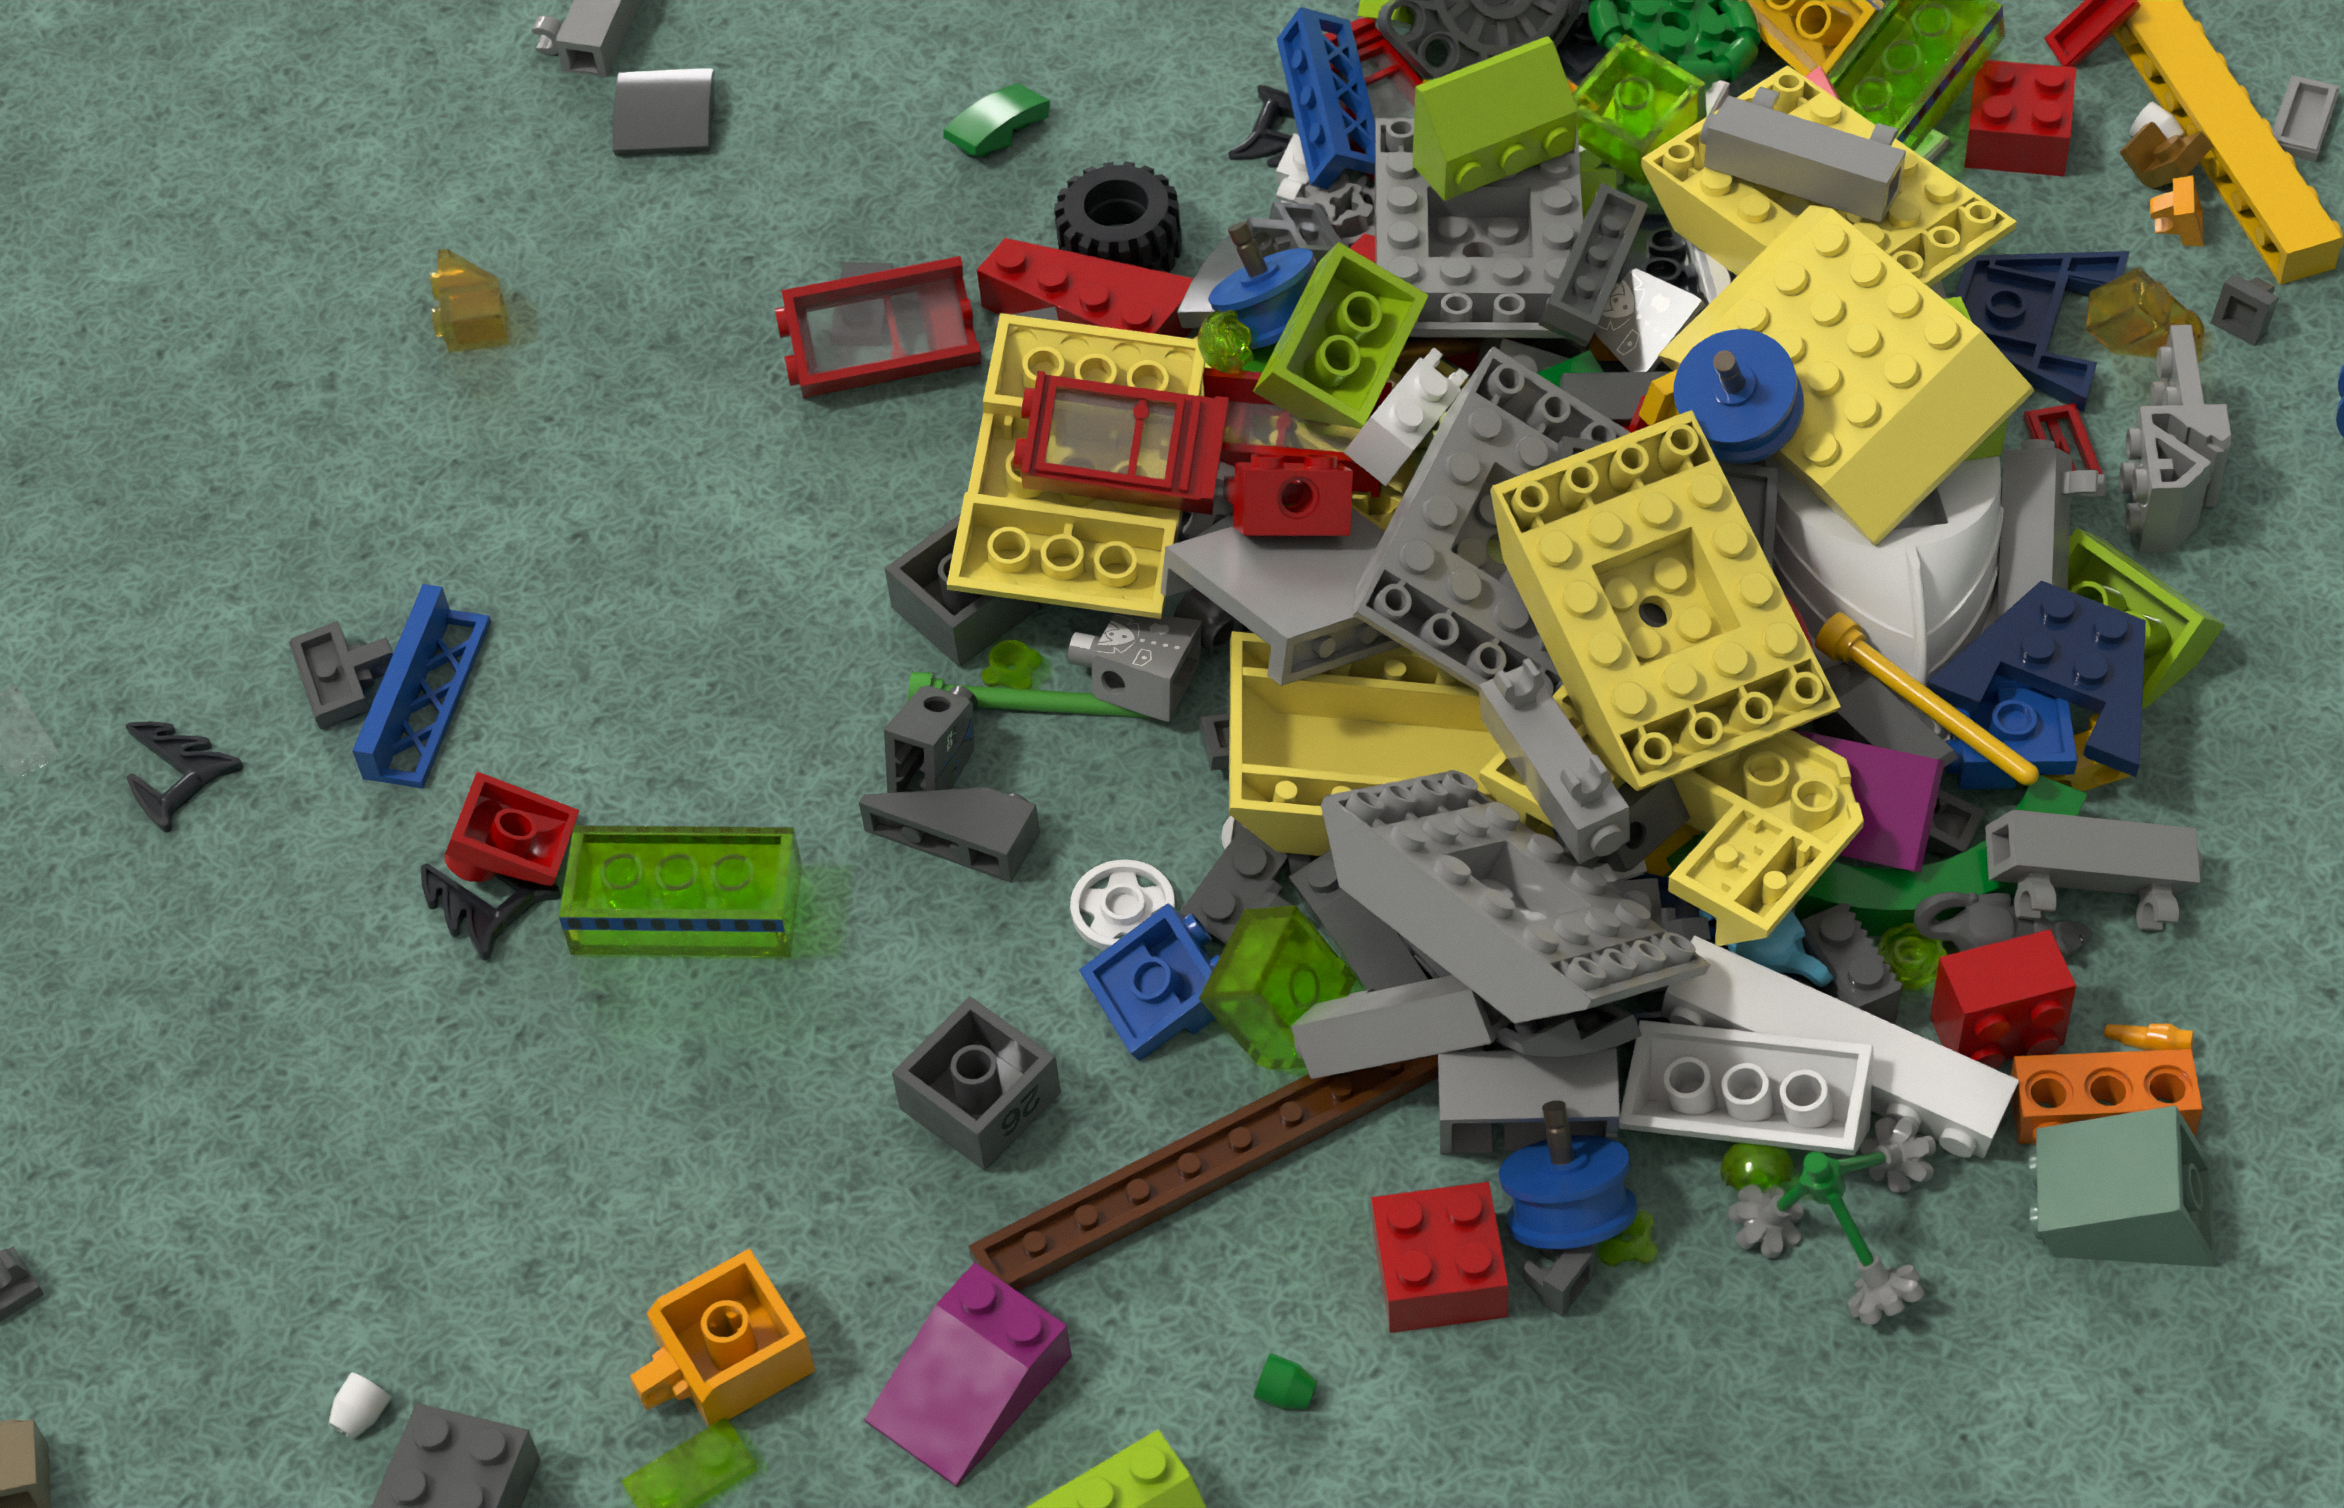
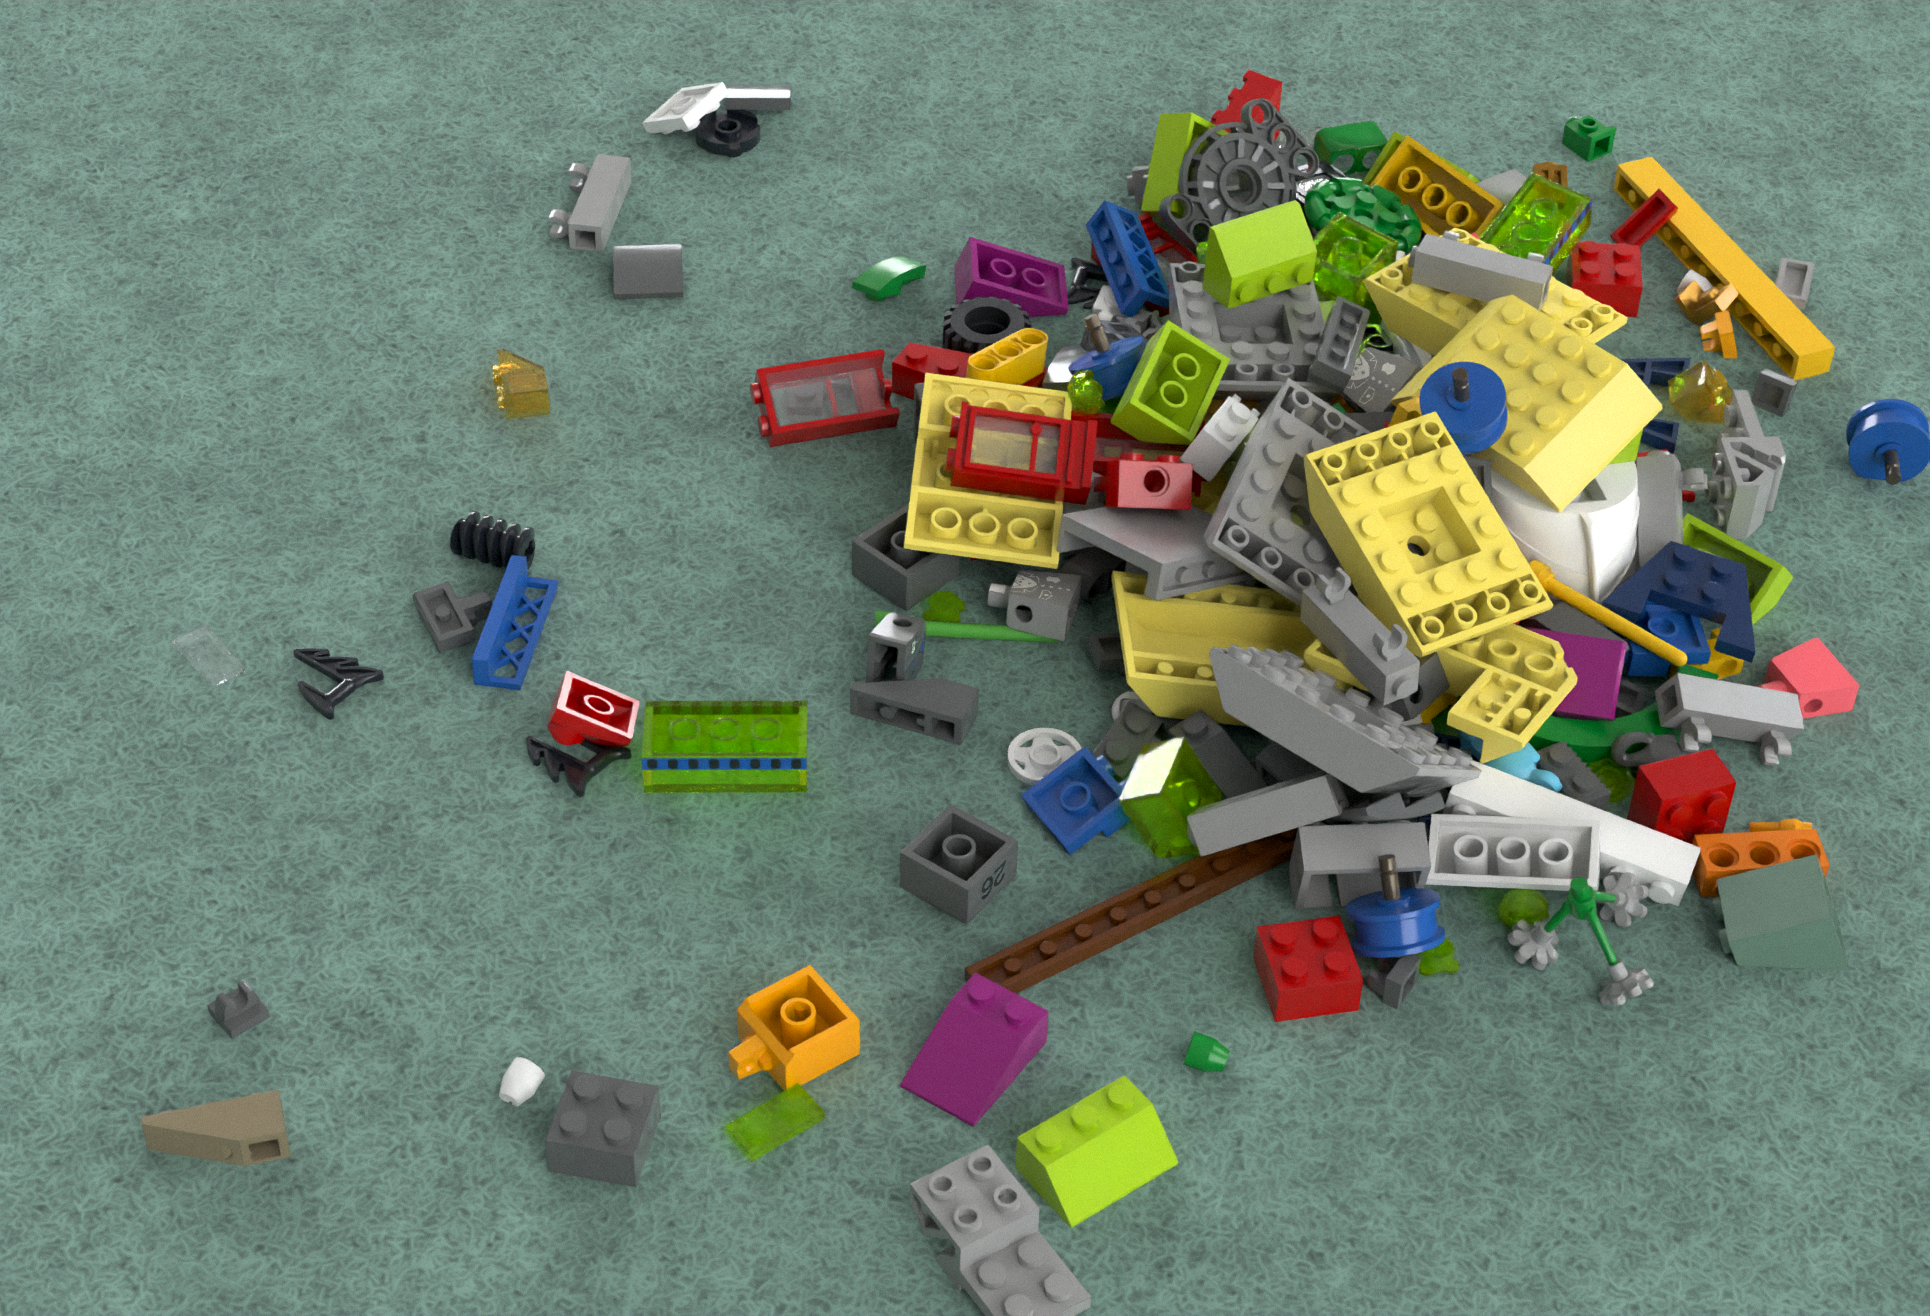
camera: 10 degrees left, 10 degrees down
(404, 555) = (491, 541): none -> black piece
(1131, 279) = (1011, 359): none -> yellow beam
(1166, 126) = (1010, 275): none -> magenta slope
(2223, 796) = (1815, 676): none -> coral torso

